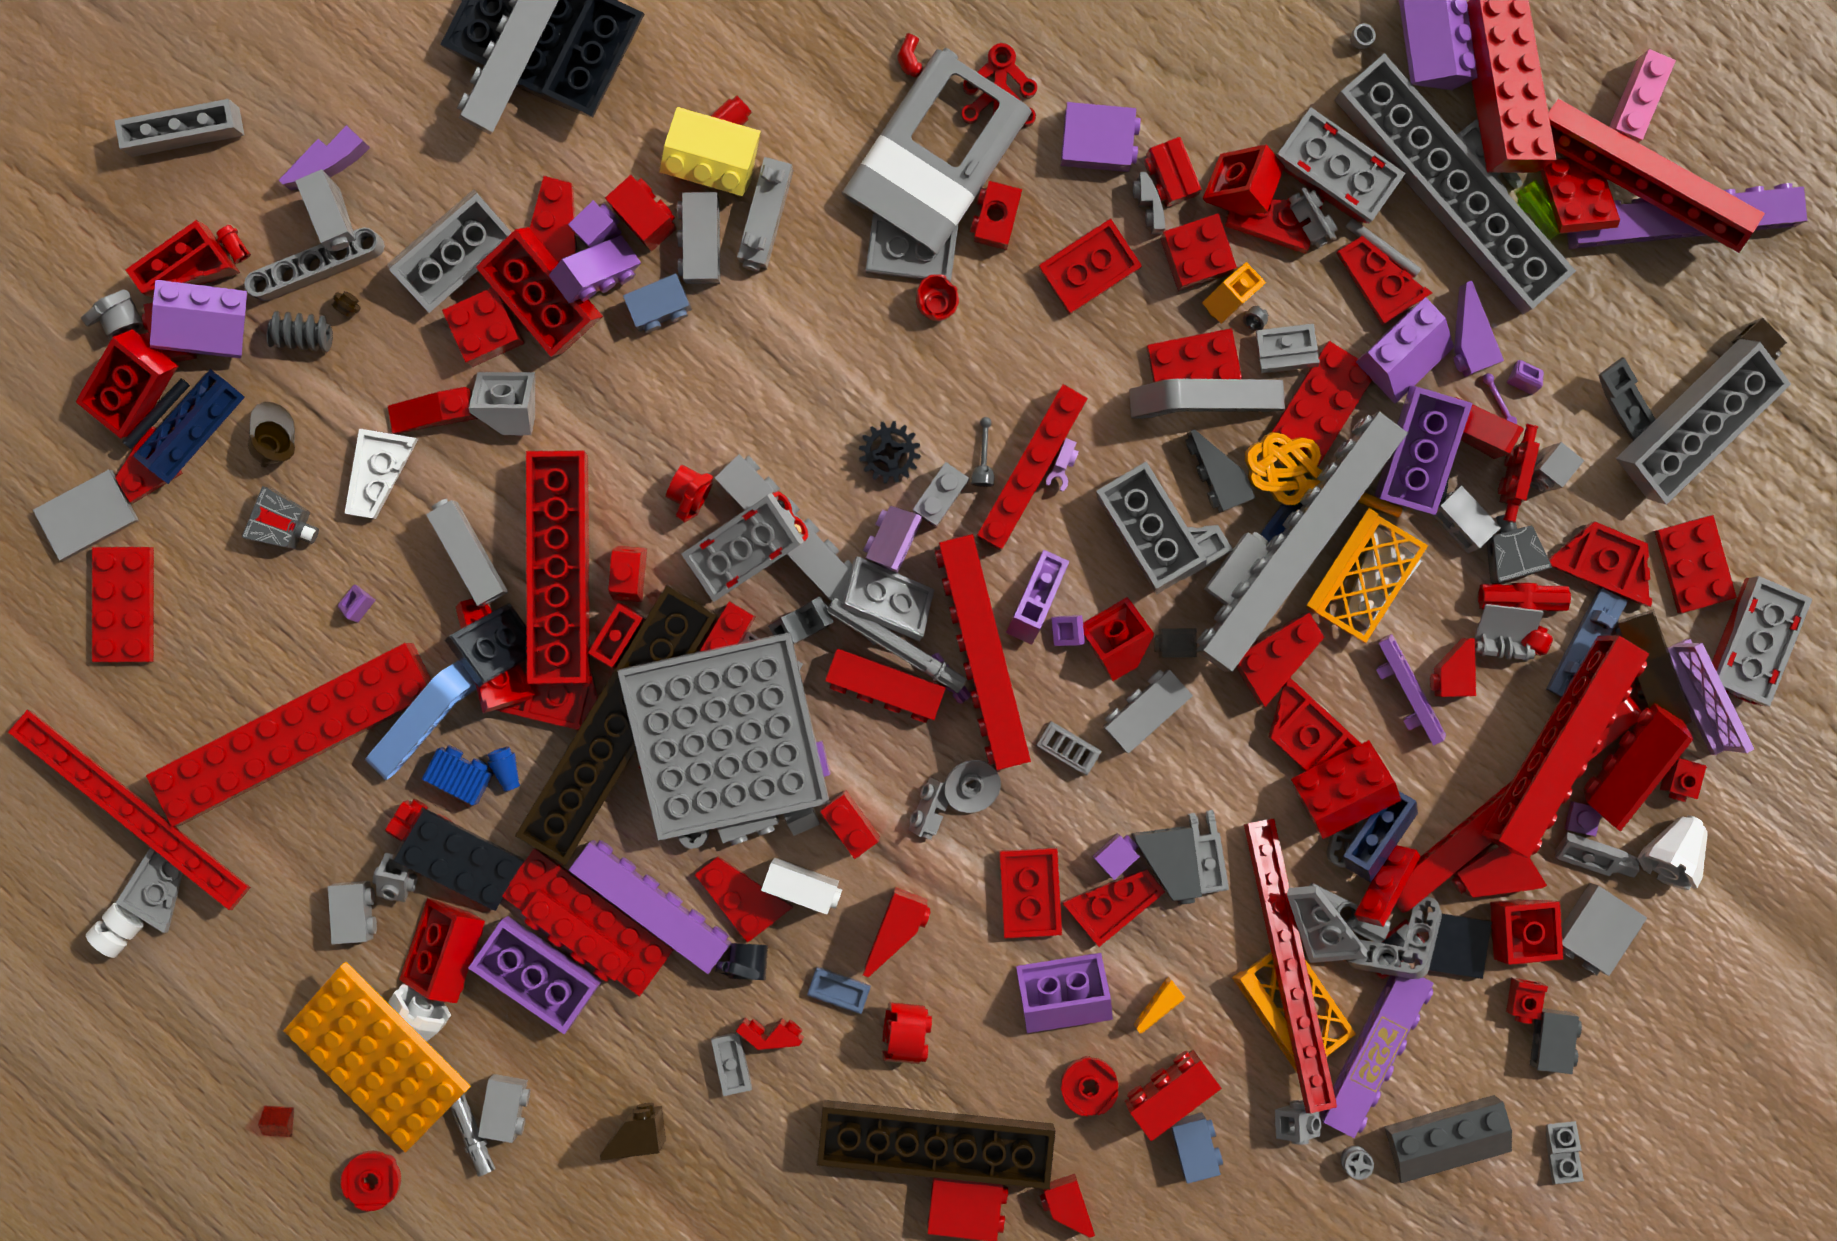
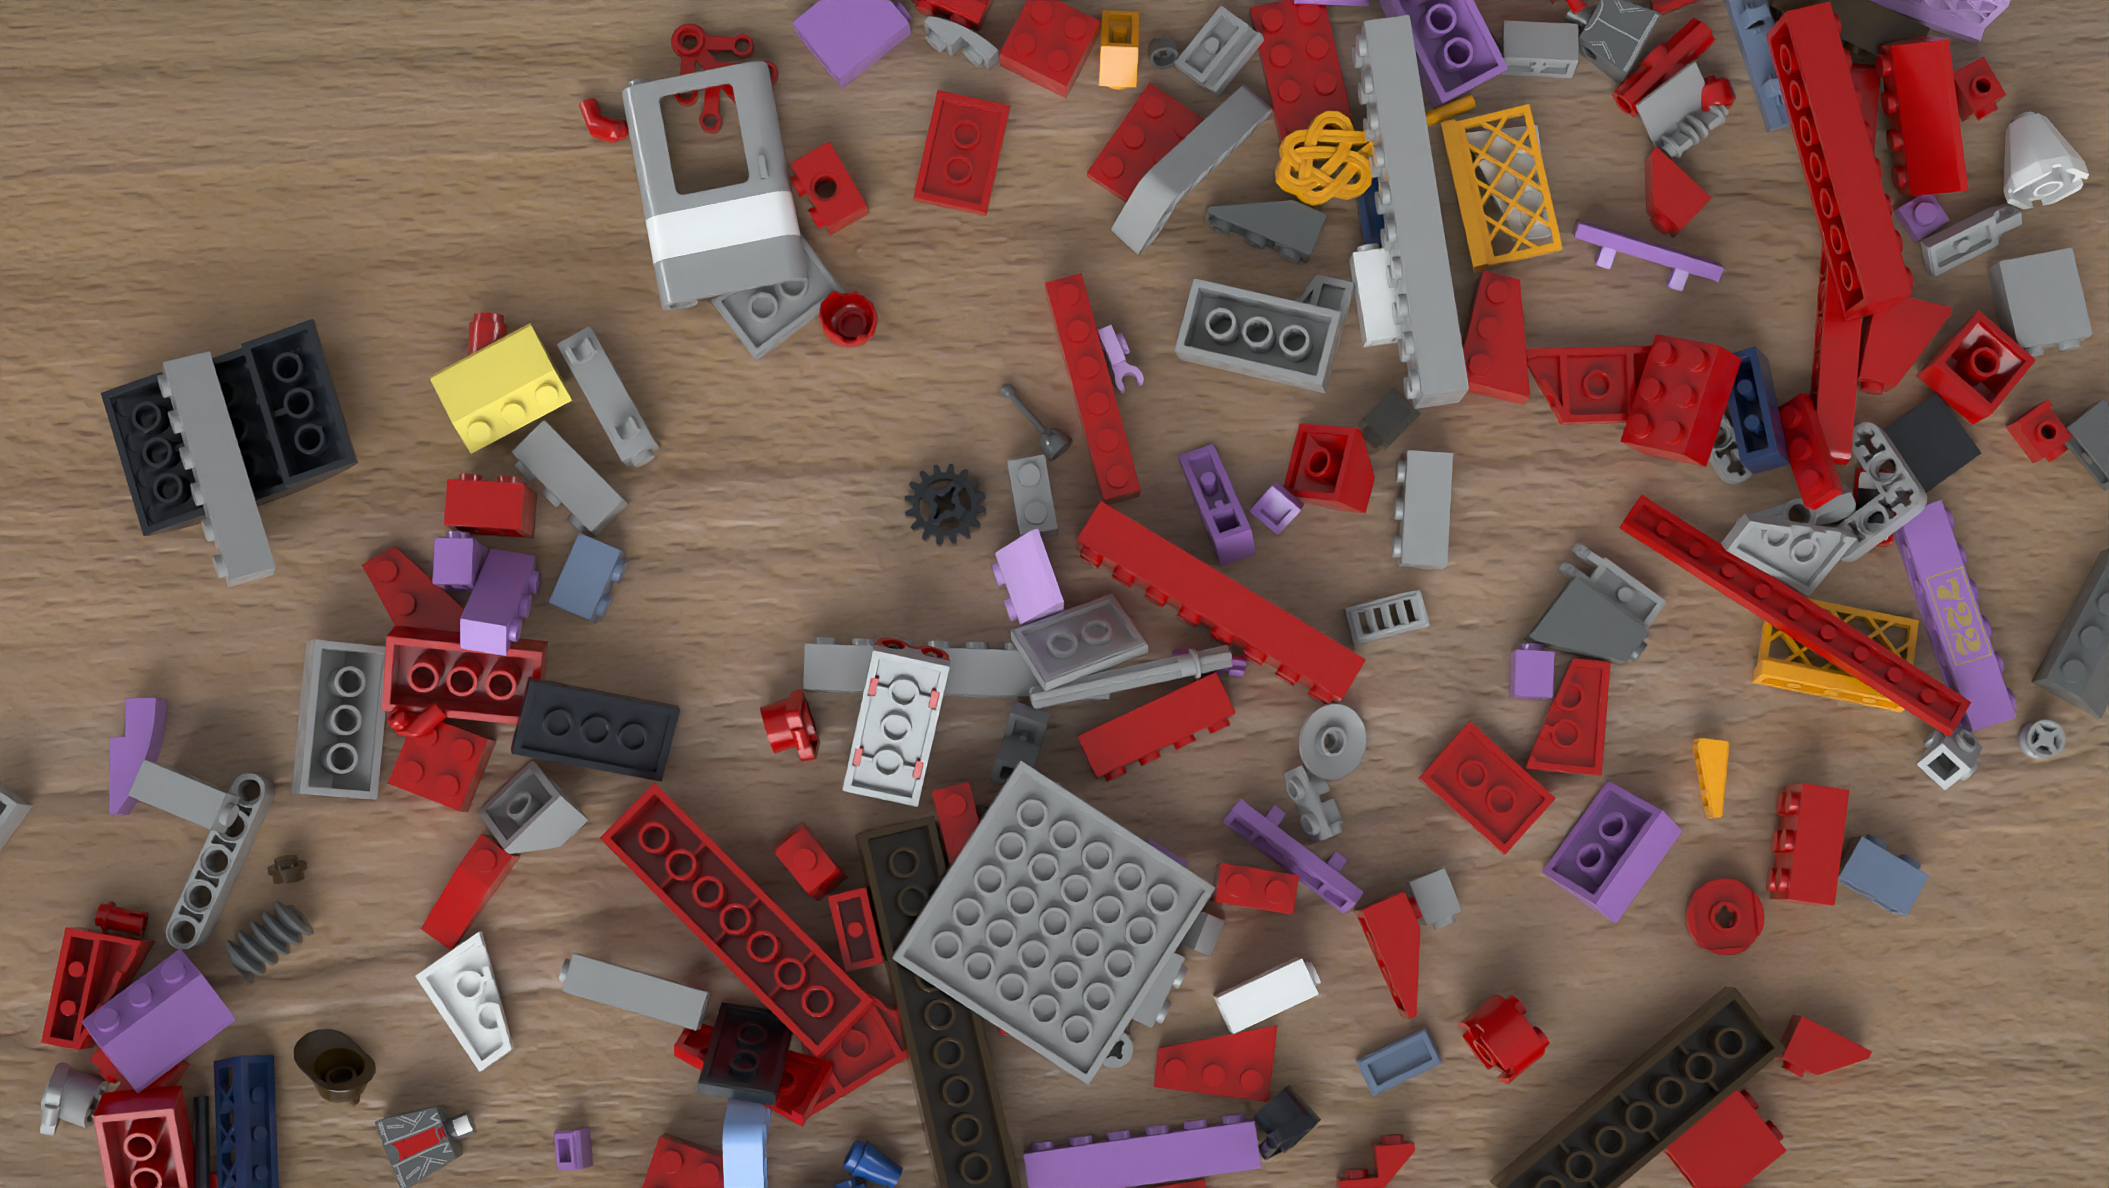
camera: 45 degrees left, 5 degrees down
(486, 293) = (414, 724): none -> red arm
(580, 389) = (594, 729): none -> black plate
(886, 804) = (1292, 856): none -> medium lavender hinge
(943, 923) = (1435, 898): none -> light grey brick

